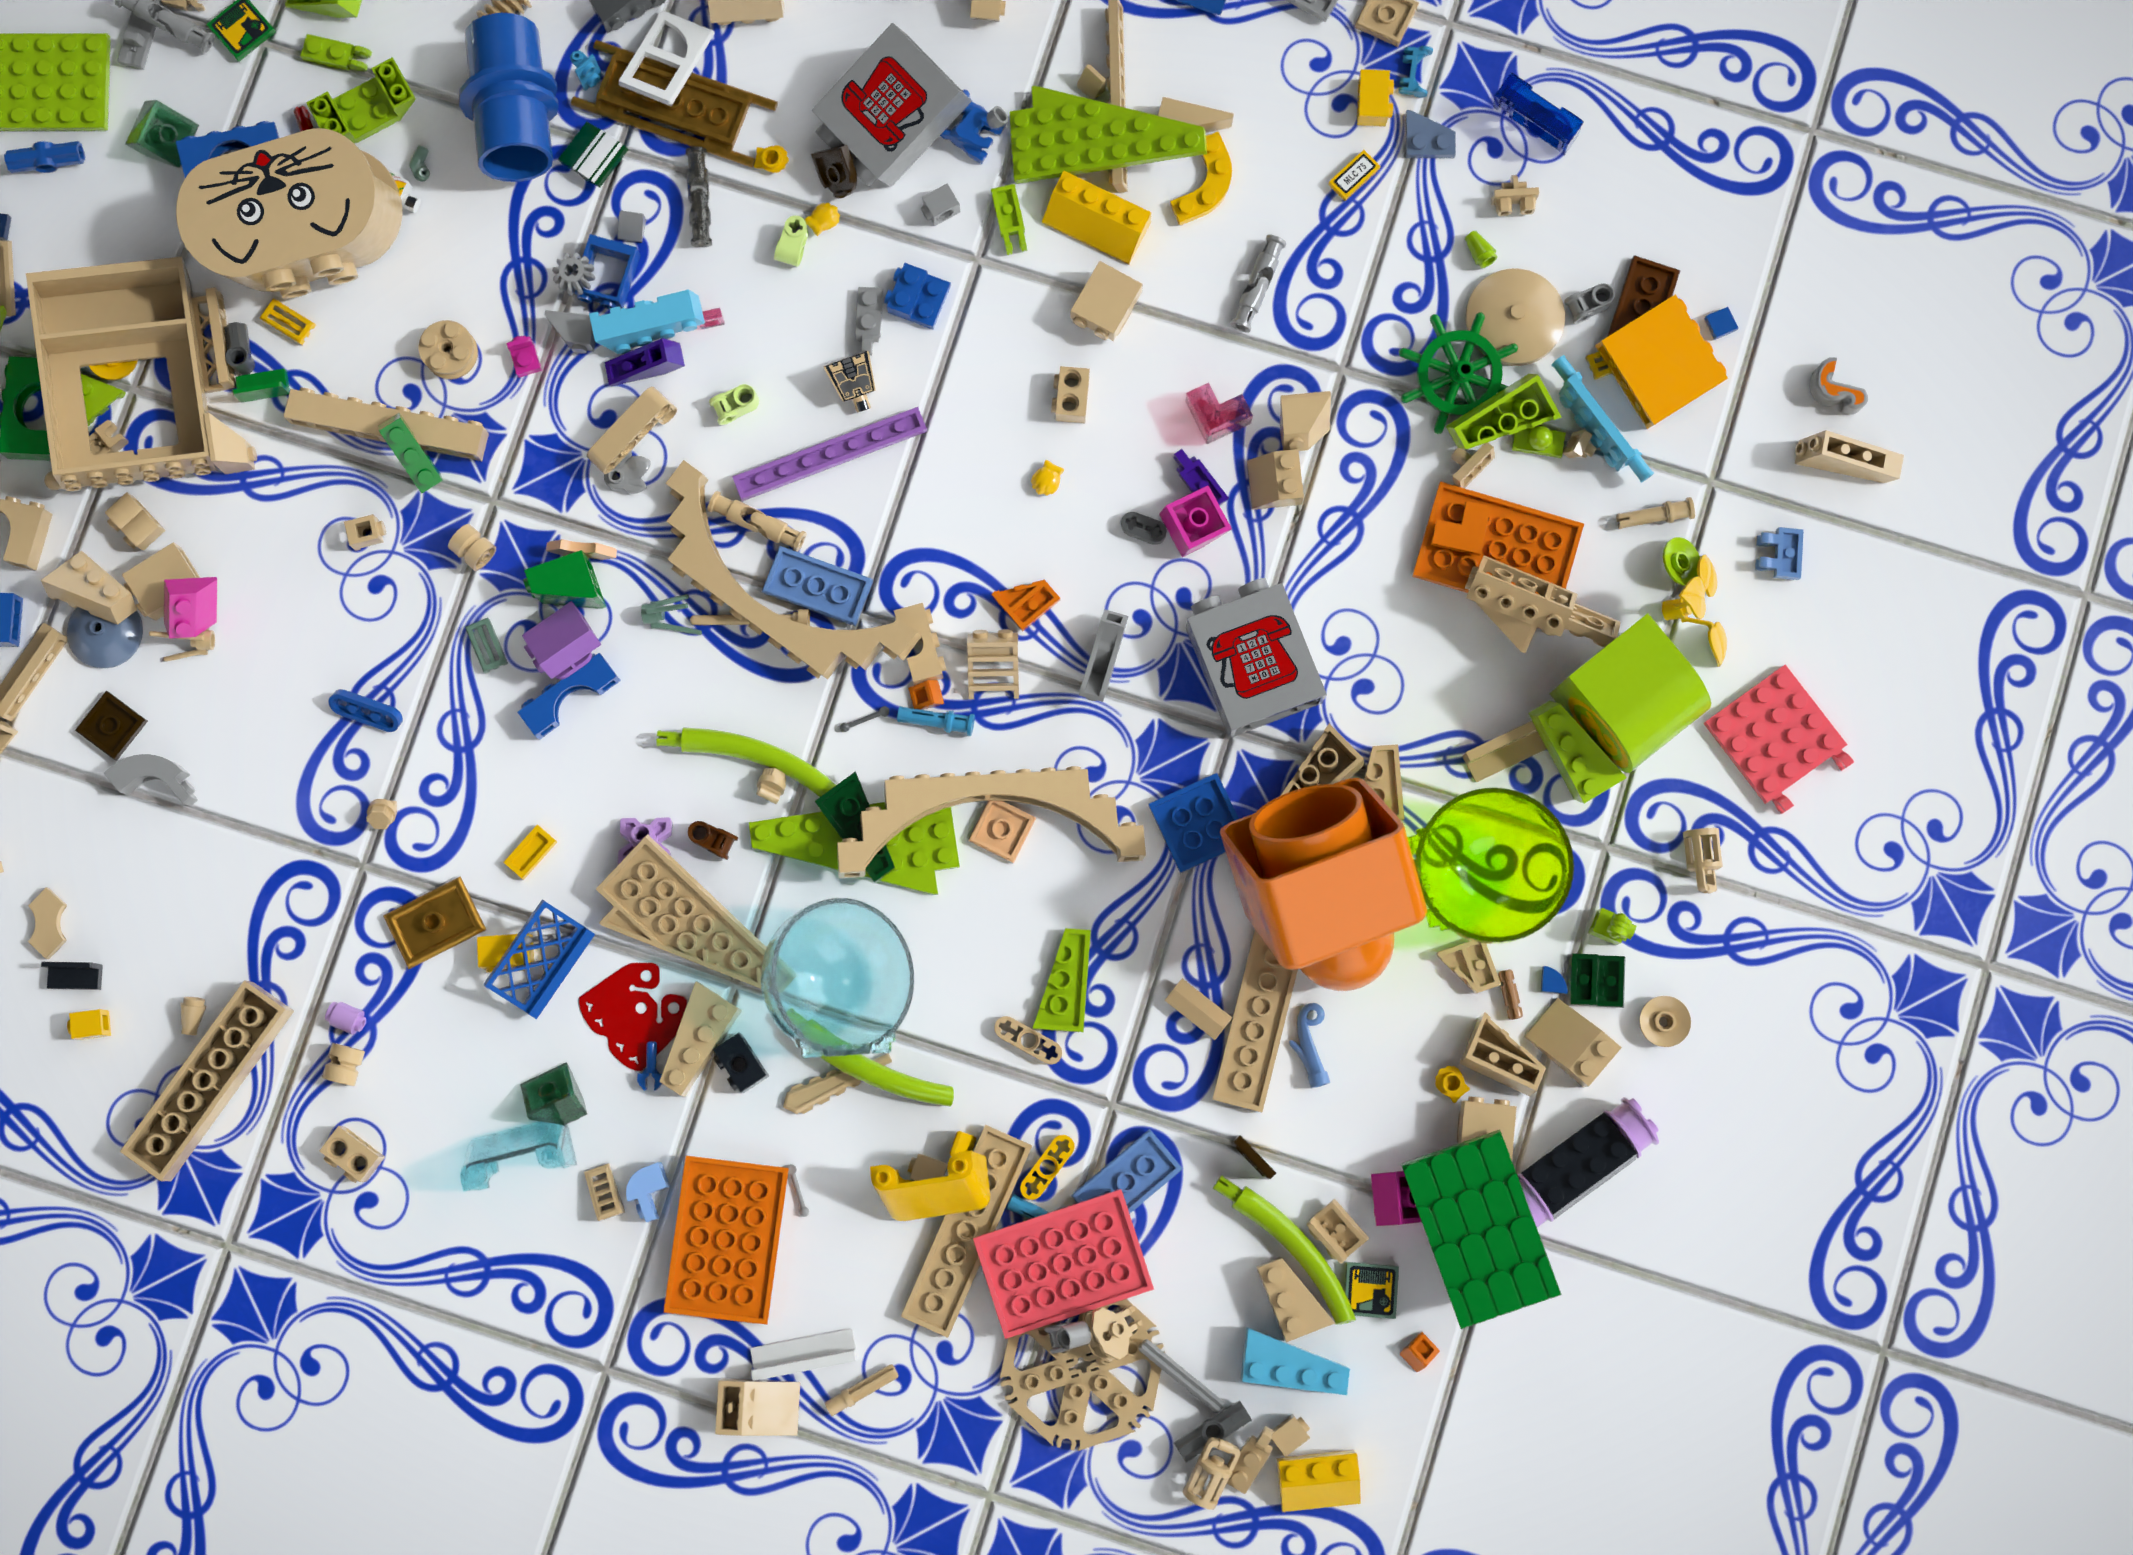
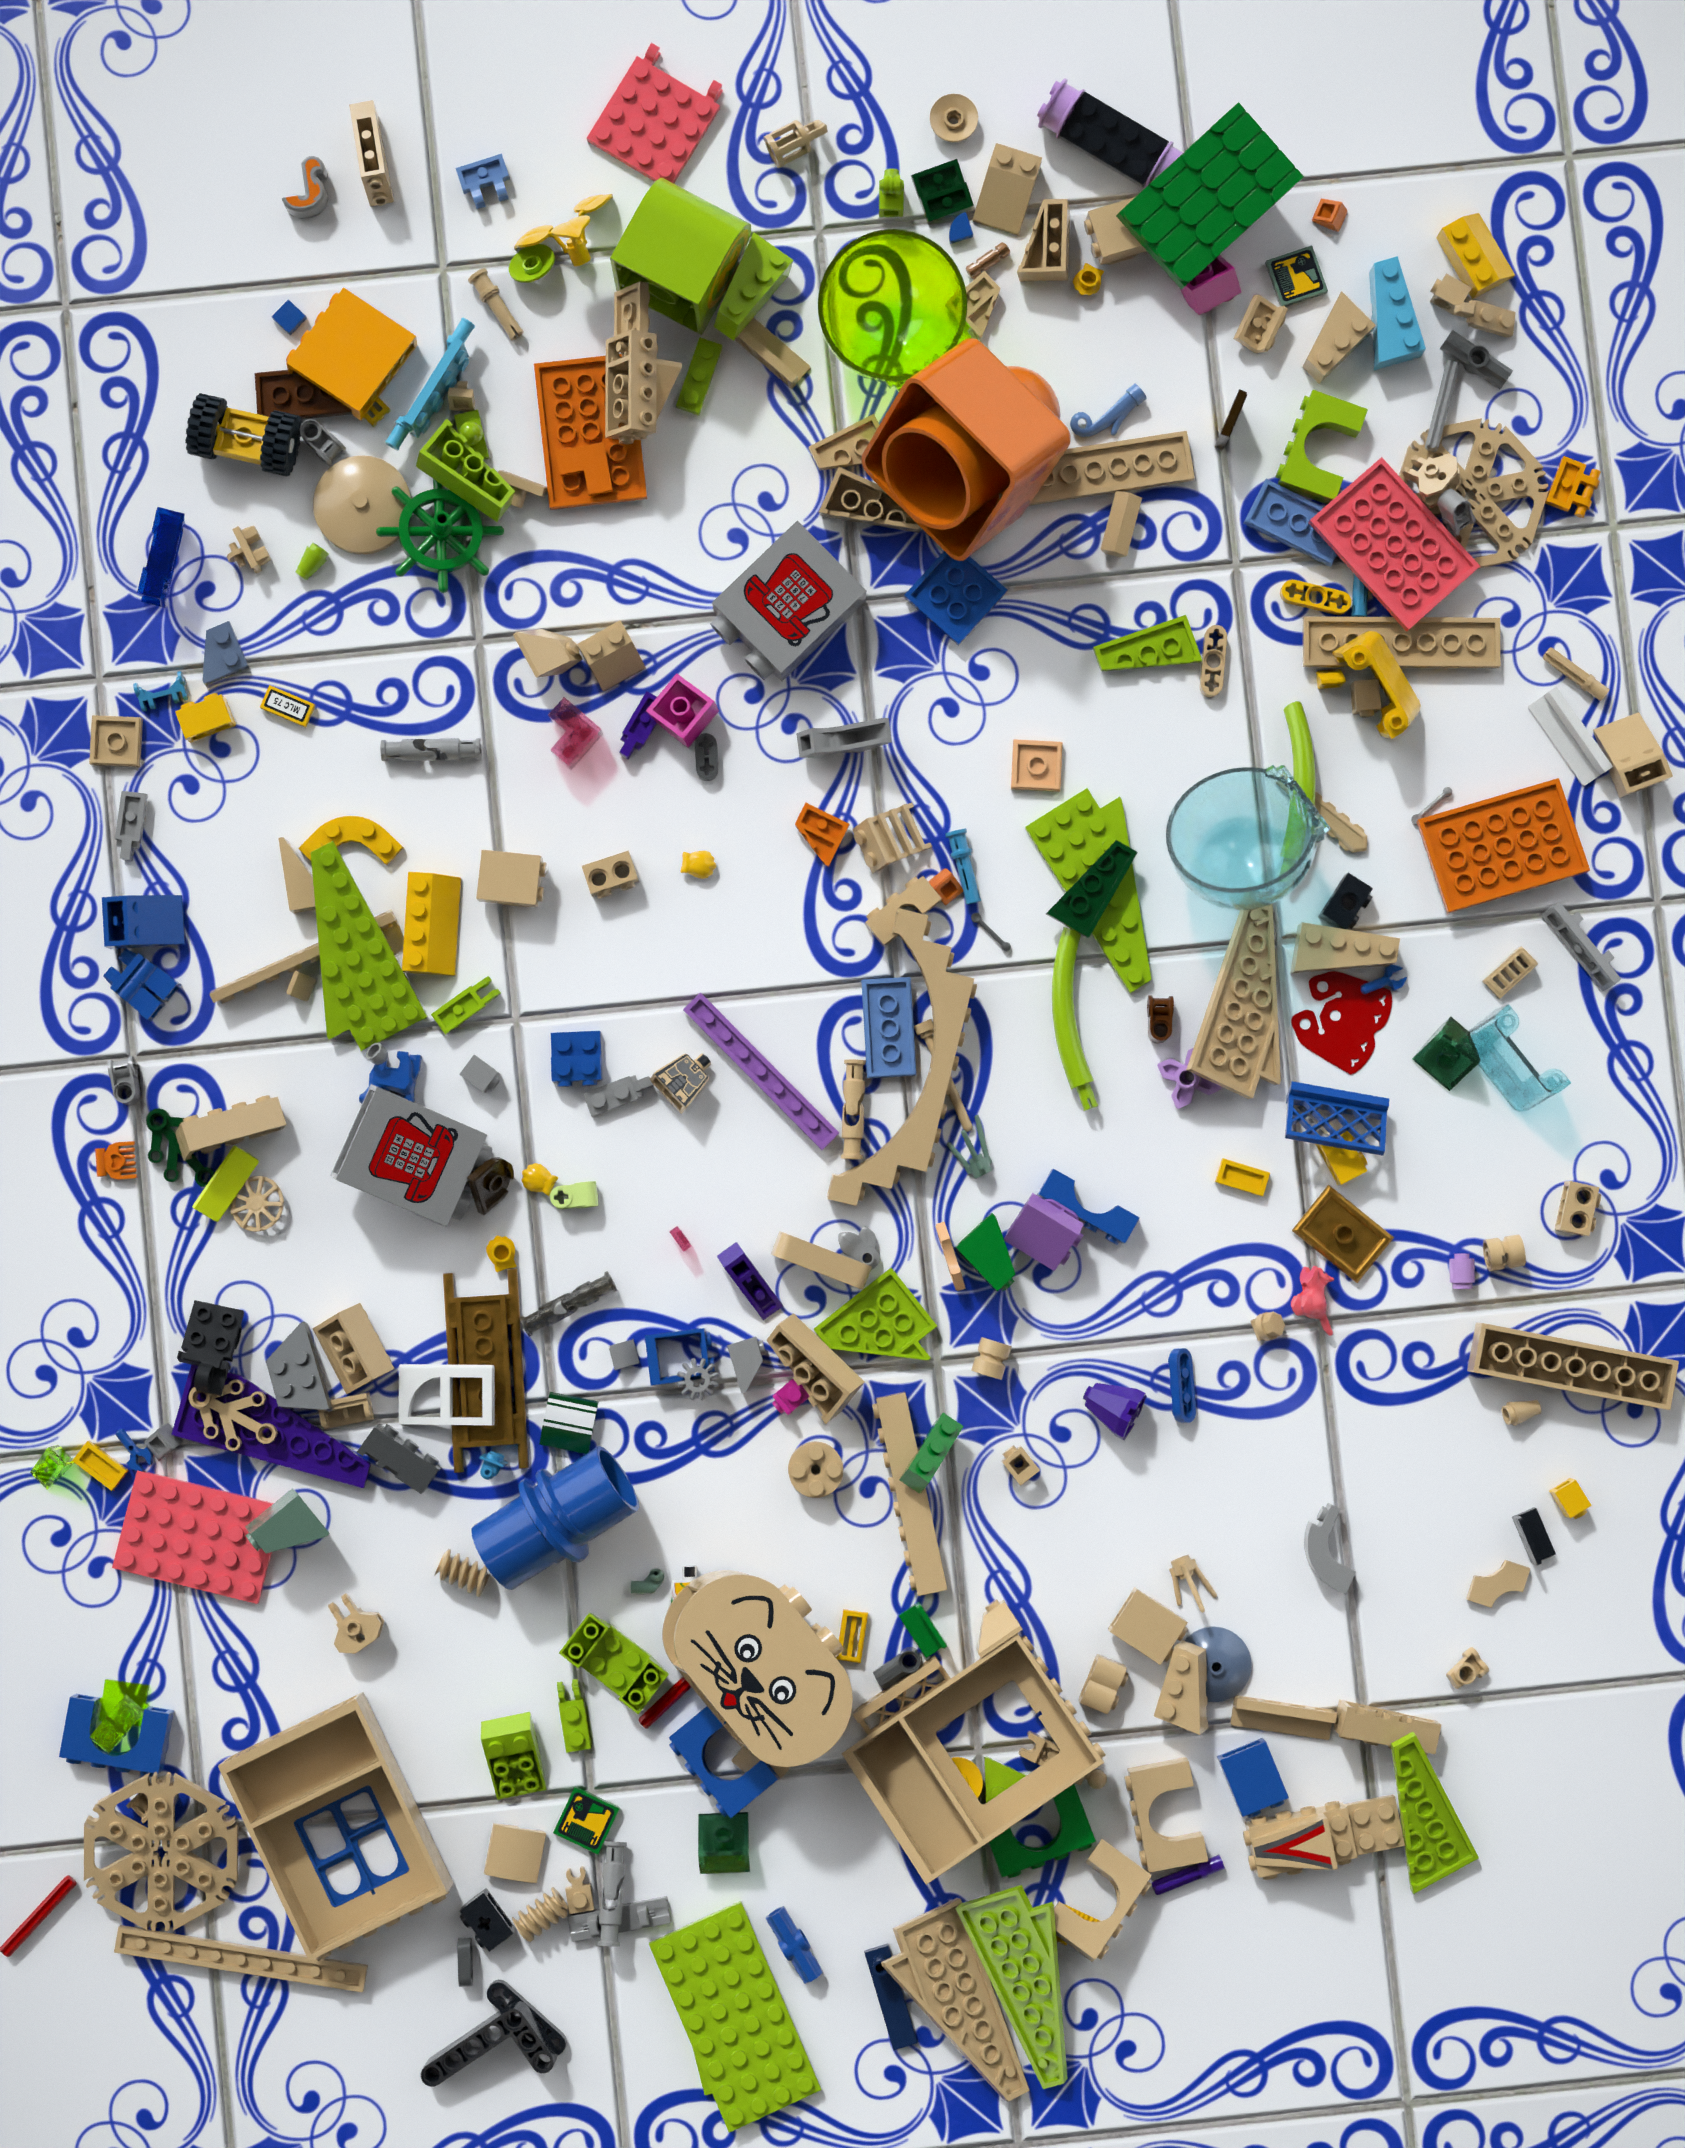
camera: 120 degrees left, 5 degrees up
(111, 725) = (1296, 1614): dark brown tile -> none
(189, 606) = (1163, 1588): dark pink slope -> none
(374, 638) = (1115, 1406): none -> dark purple cone
(385, 863) = (1311, 1300): none -> coral animal
(494, 664) = (1088, 1289): sand green tile -> none
(539, 385) = (815, 1366): none -> tan wedge
(553, 463) = (879, 1321): none -> lime wing
(576, 1277) = (1581, 946): none -> light grey hinge
(642, 1185) = (1486, 938): light blue brick -> none
(647, 321) = (711, 1290): medium azure wedge -> none
(732, 403) = (754, 1181): yellowish green piece -> none
(771, 784) = (1088, 987): tan piece -> none
(1052, 1466) = (1565, 484): none -> light orange plate
(1058, 791) = (1050, 848): tan arch -> none
(1217, 1468) = (1506, 344): tan piece -> none
(1225, 1250) = (1319, 412): none -> lime arch
(1295, 1241) = (1284, 357): lime animal -> none
(1509, 673) = (699, 376): none -> lime plate
(1635, 213) = (243, 435): none -> black plate

